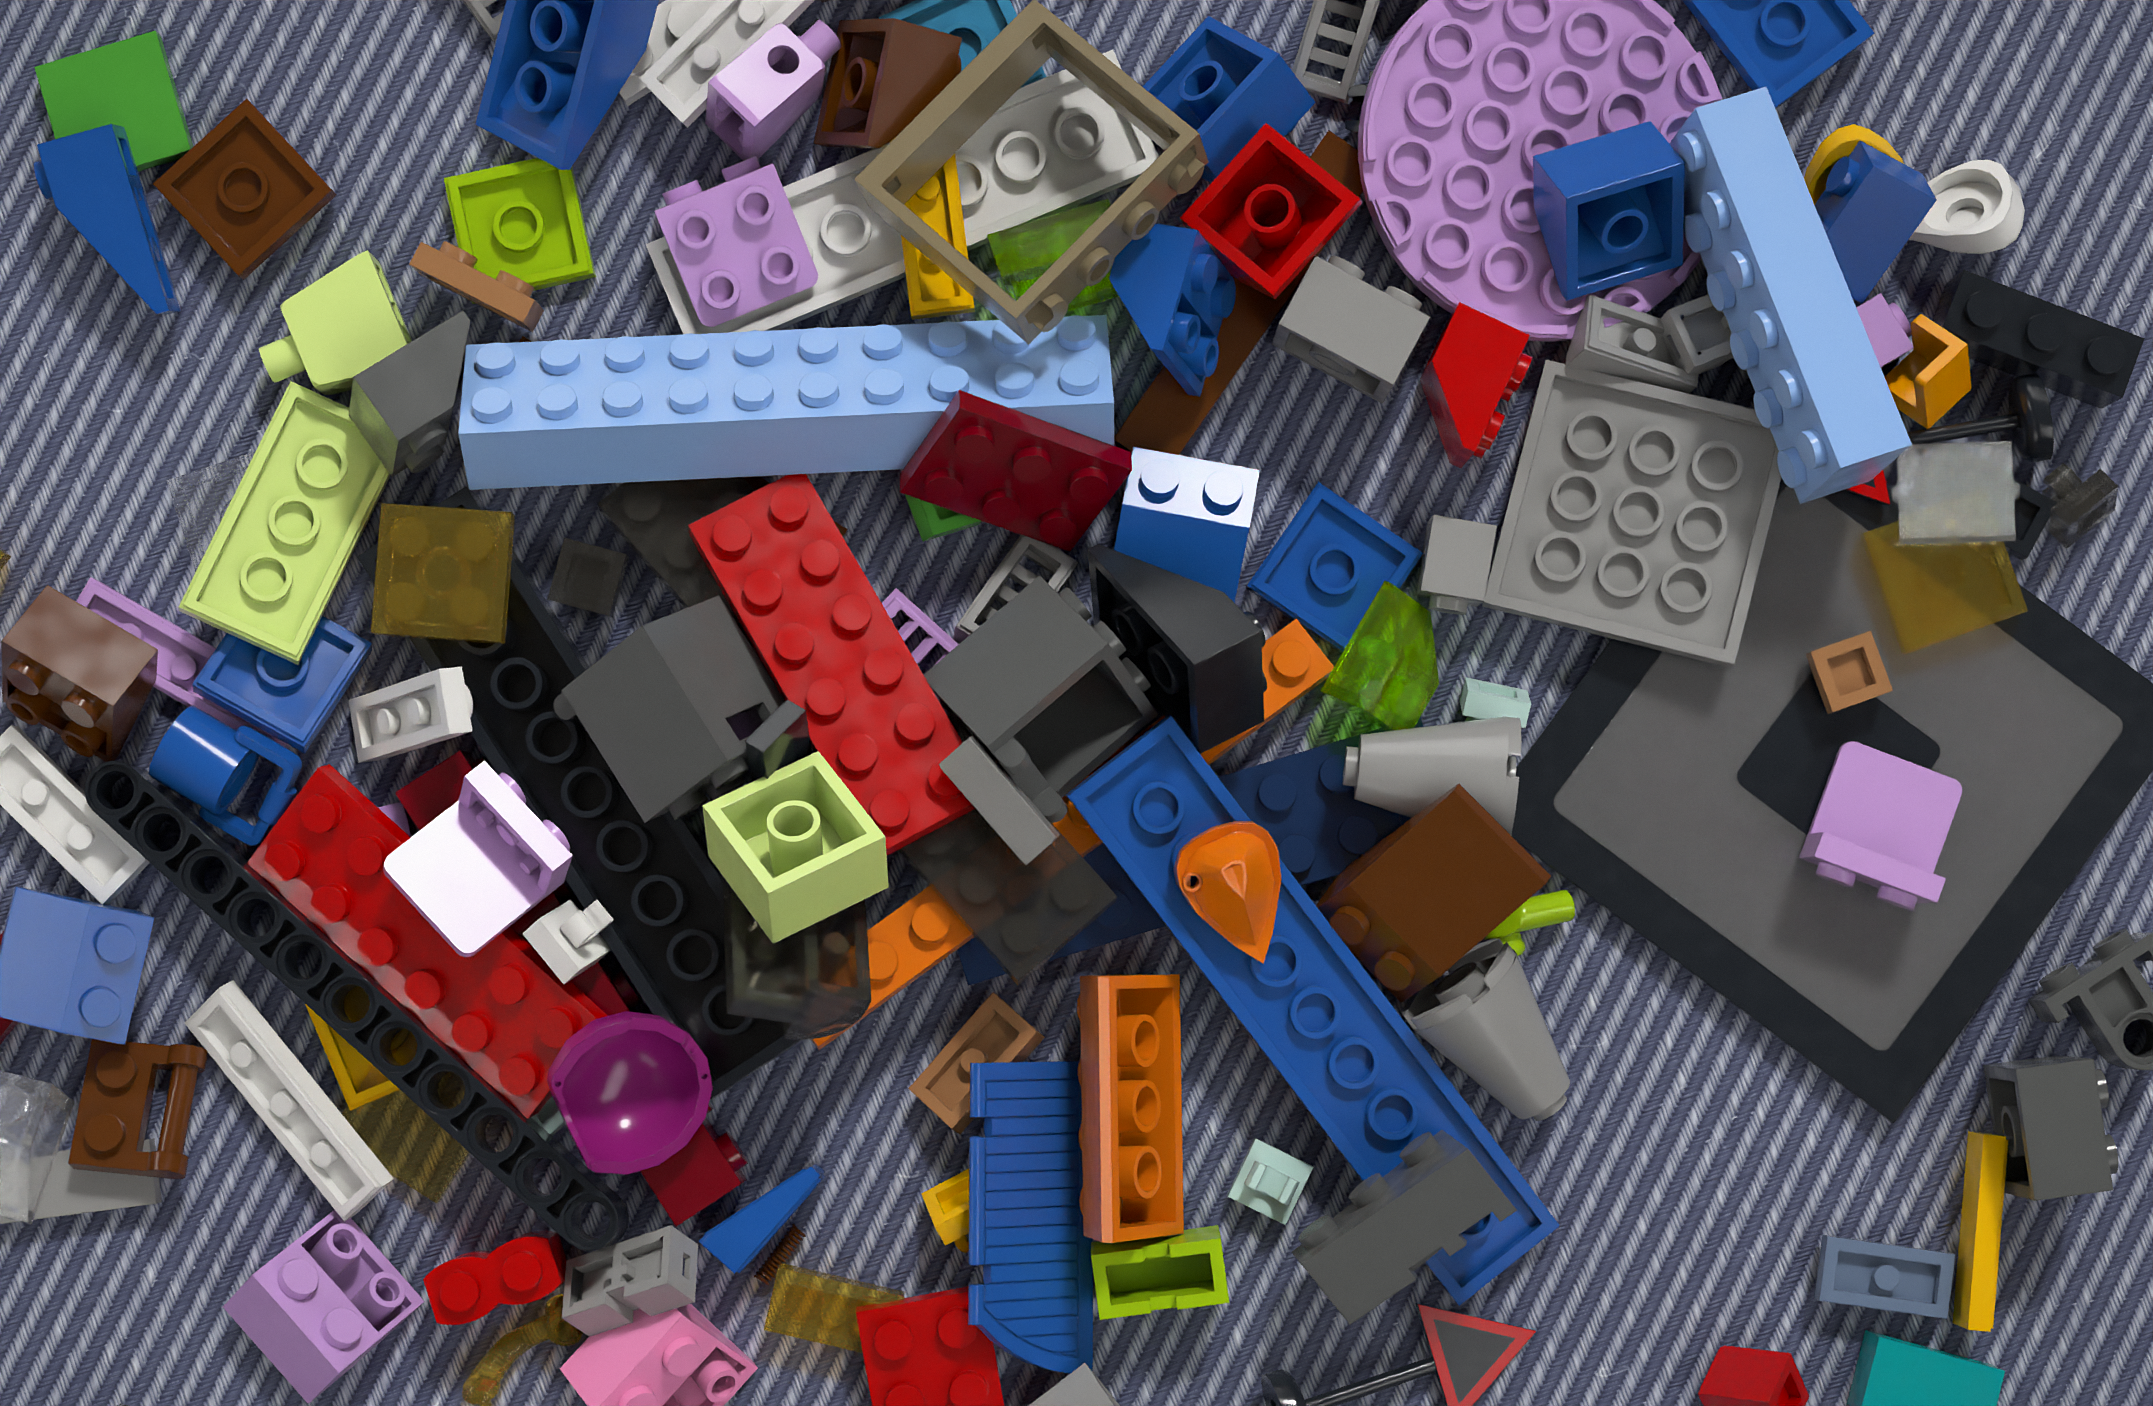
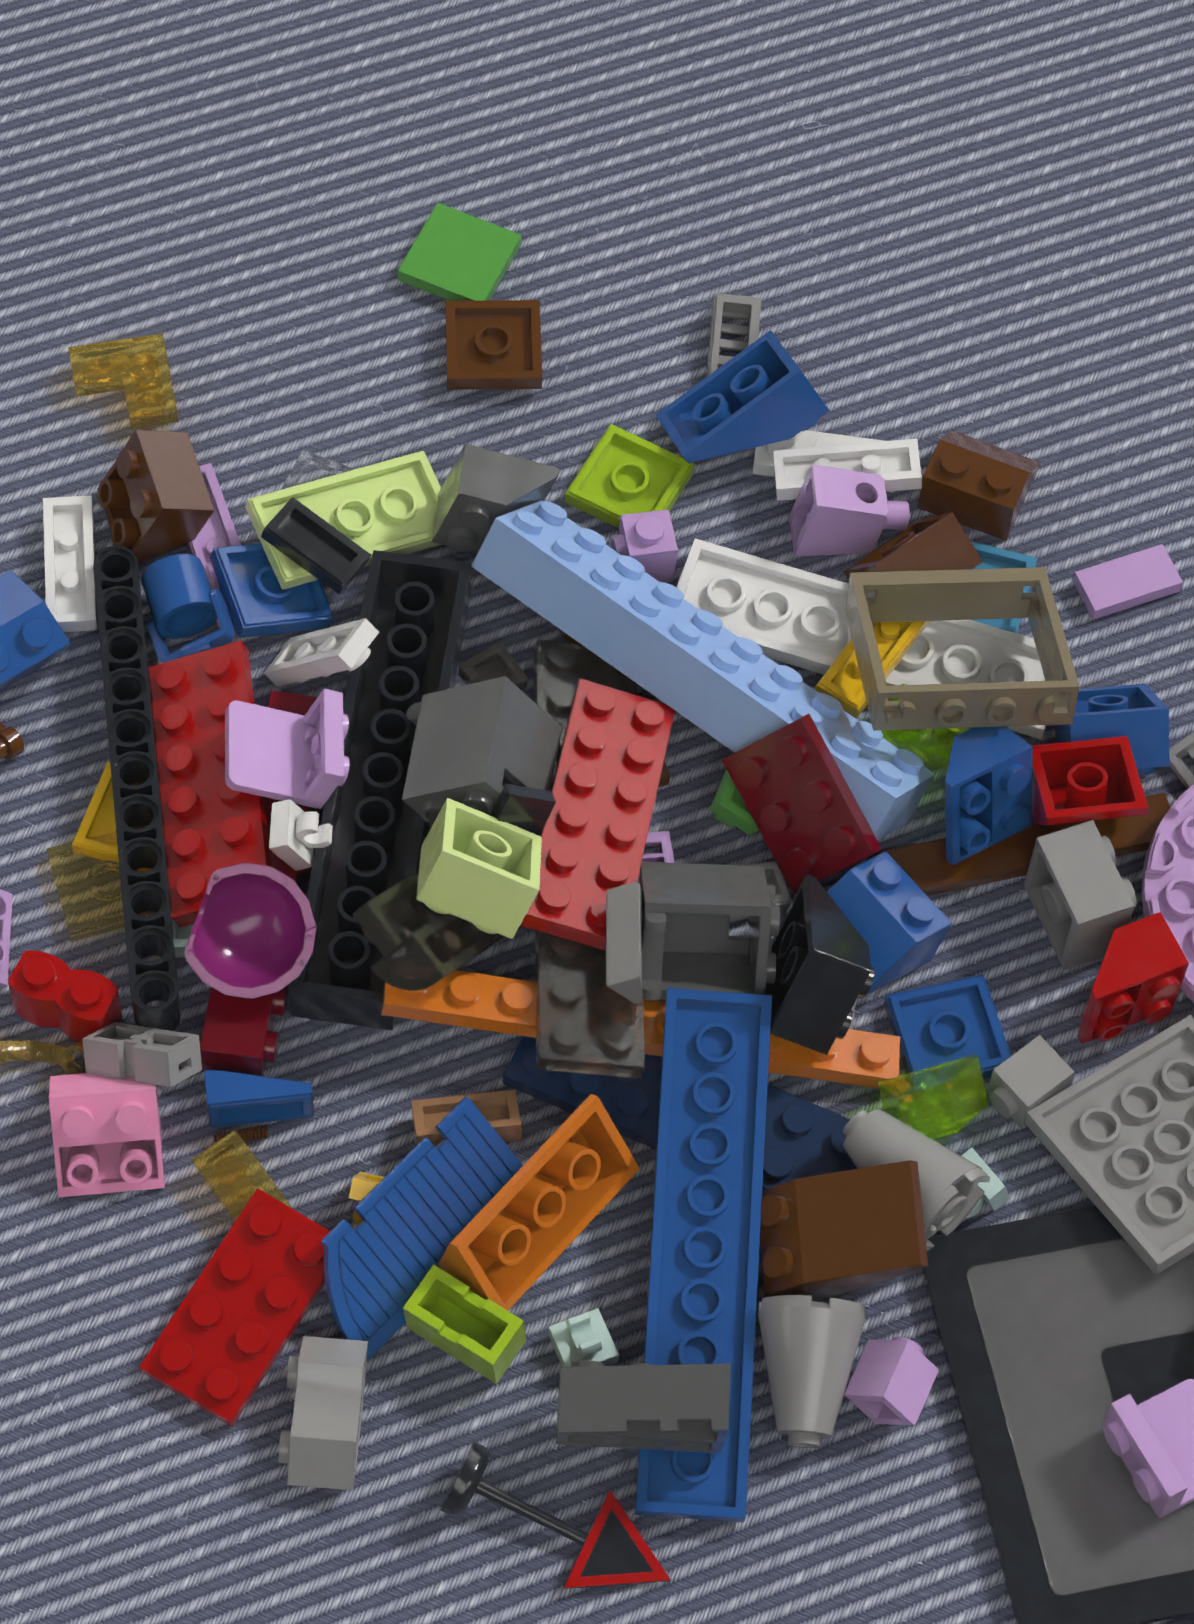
camera: 40 degrees right, 25 degrees down
(103, 198) = (414, 277): blue slope -> none
(288, 1100) = (43, 810): white tile -> none
(292, 597) = (315, 545): none -> black tile
(338, 327) = (478, 426): yellowish green torso -> none
(442, 573) = (414, 592): clear yellow plate -> none
(456, 272) = (584, 494): medium nougat plate -> none
(607, 298) = (650, 541): none -> lavender brick
(736, 242) = (749, 573): lavender bracket -> none
(1235, 883) = (723, 1118): orange piece -> none
(1533, 914) = (893, 1320): lime arm -> none
(1581, 981) = (892, 1381): none -> lavender brick

